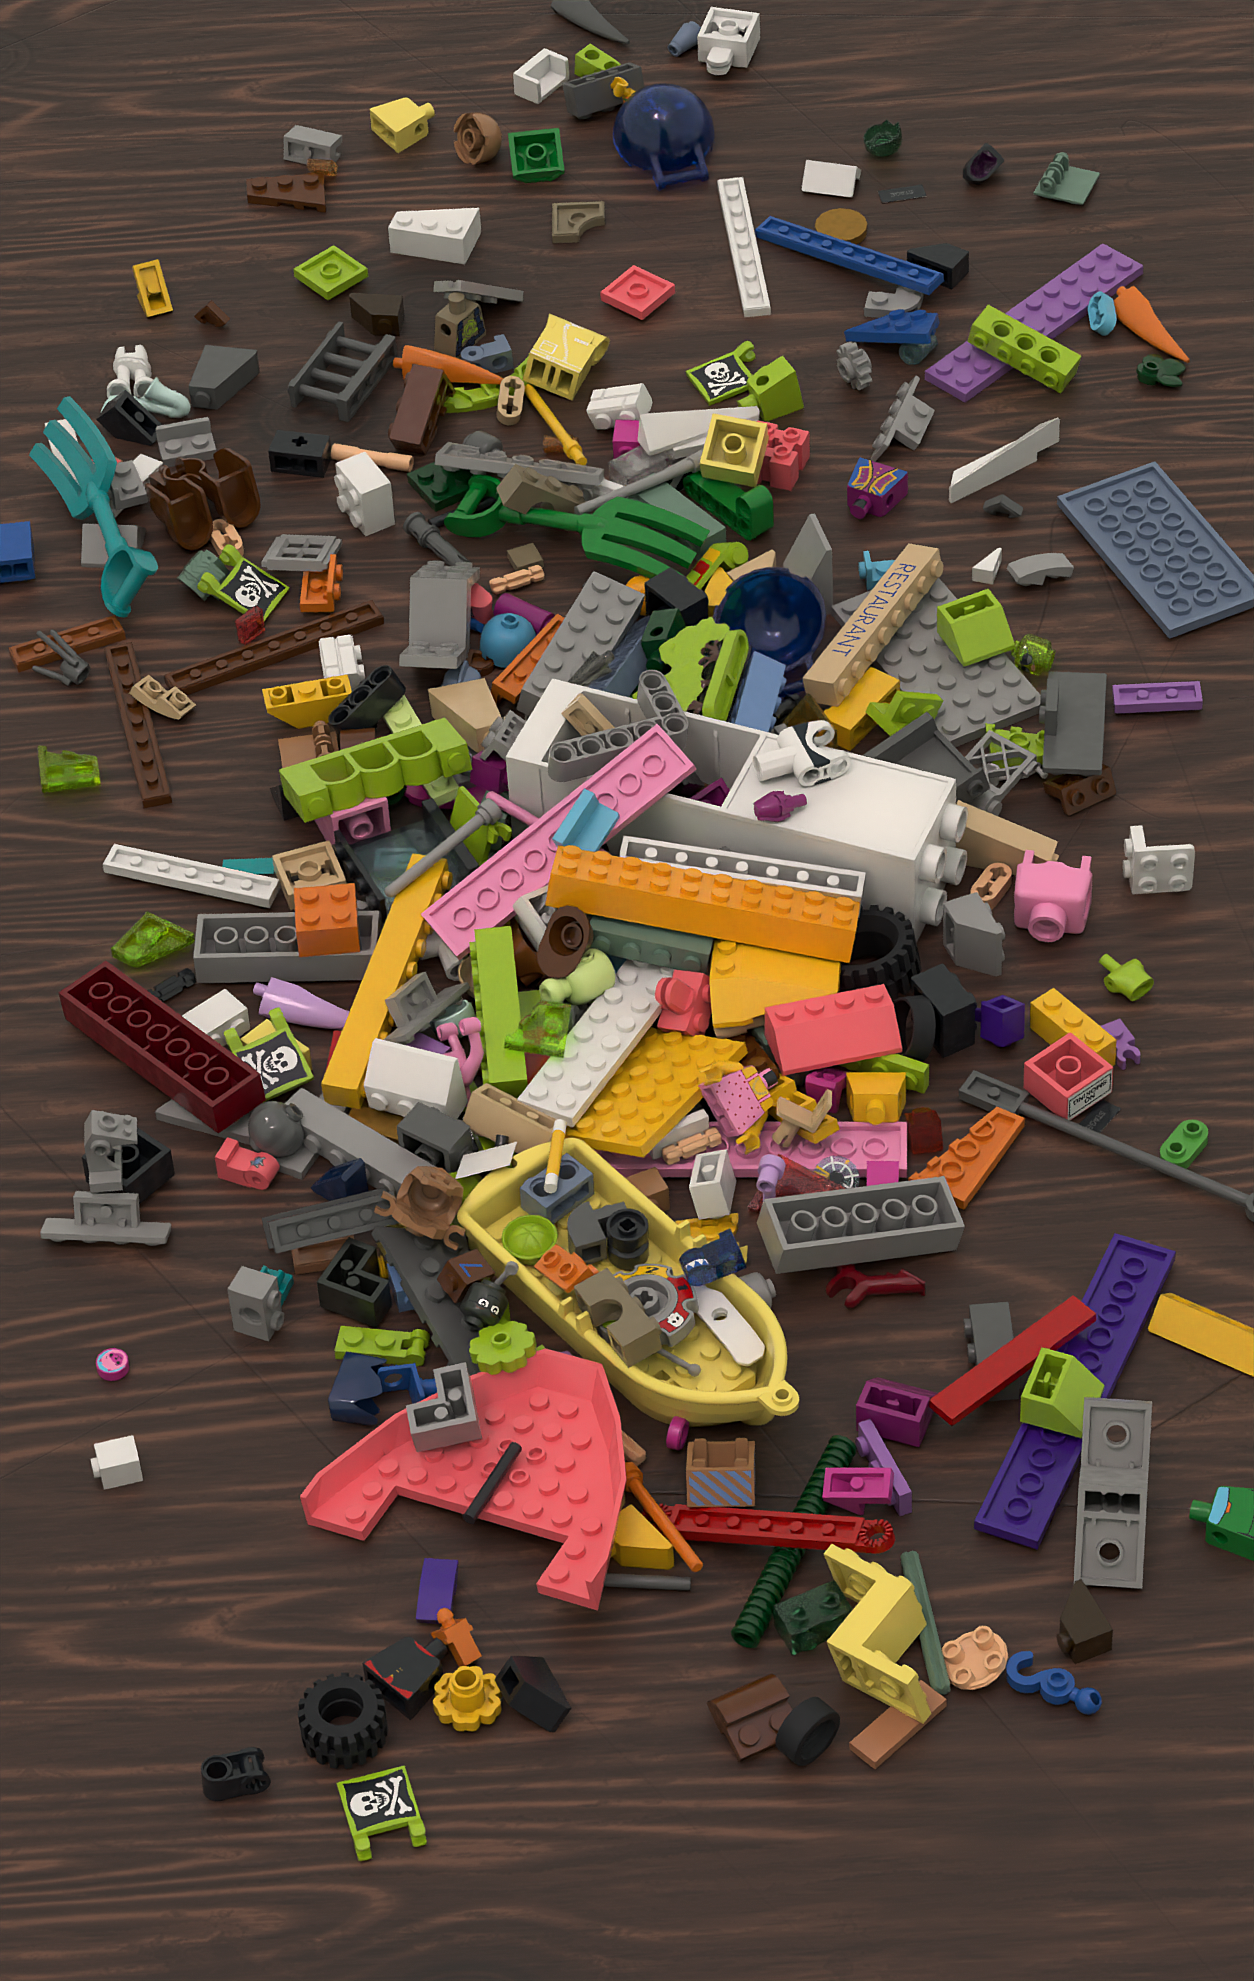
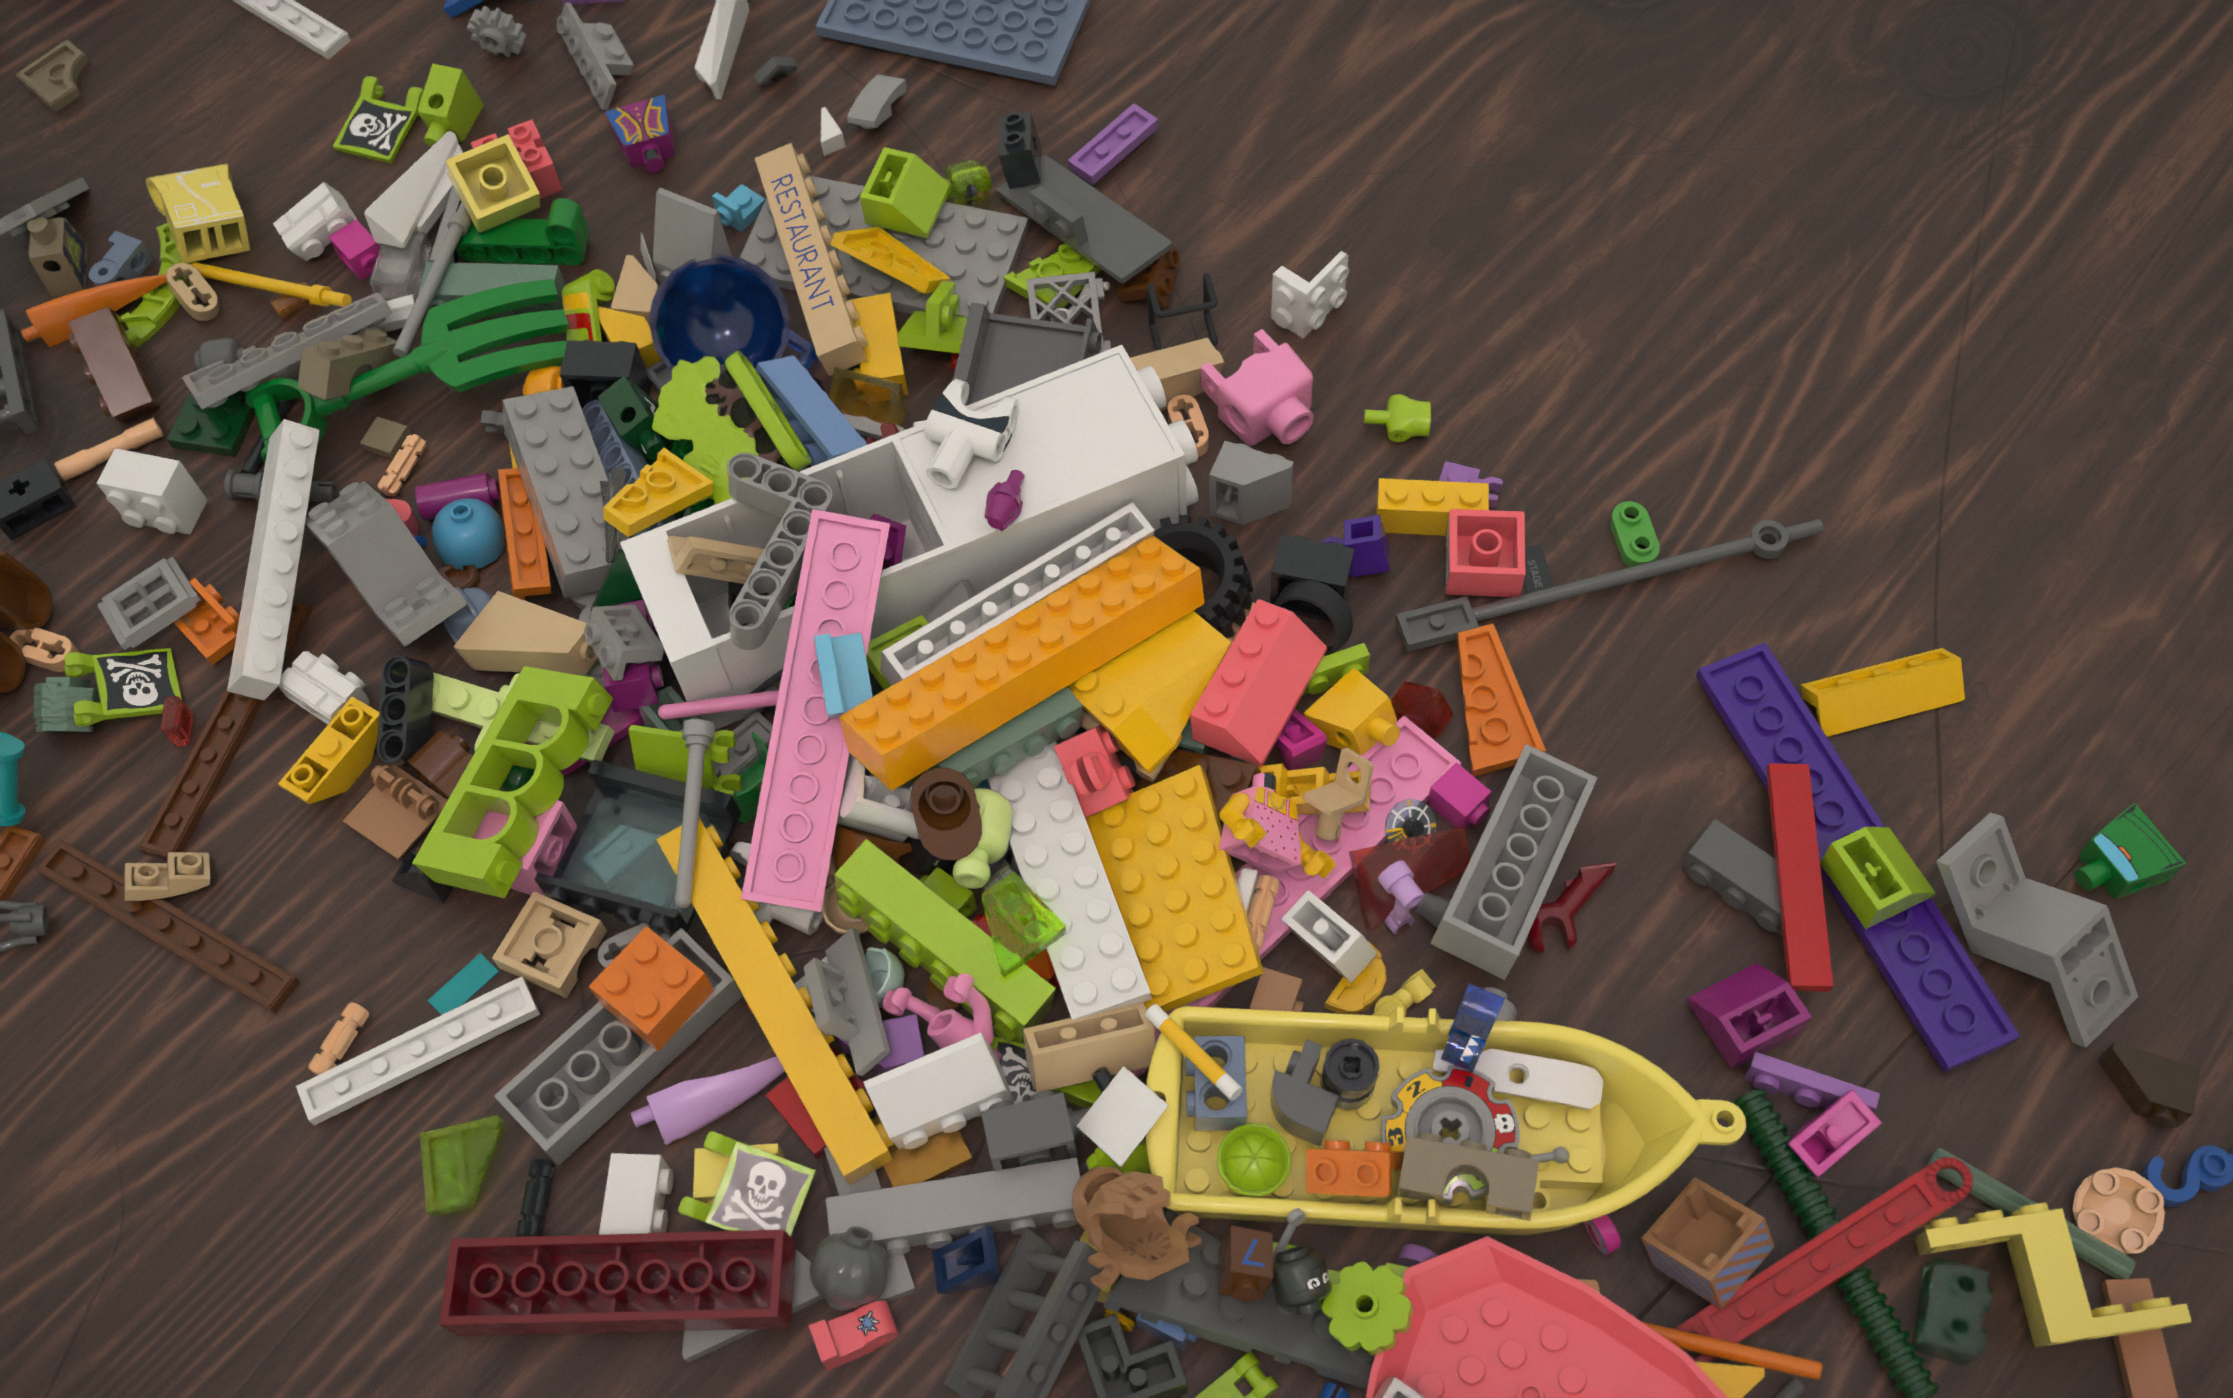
camera: 45 degrees left, 15 degrees up
(67, 770) = (144, 1043): clear neon green wing -> none
(161, 841) = (339, 1038): none -> light nougat axle
(386, 573) = (273, 561): none -> white brick
(611, 678) = (656, 494): none -> yellow wing
(637, 292) = (201, 103): coral plate -> none
(921, 656) = (890, 256): none -> yellow wing
(1046, 783) = (1154, 310): none -> black piece
(1086, 655) = (1019, 149): none -> black brick

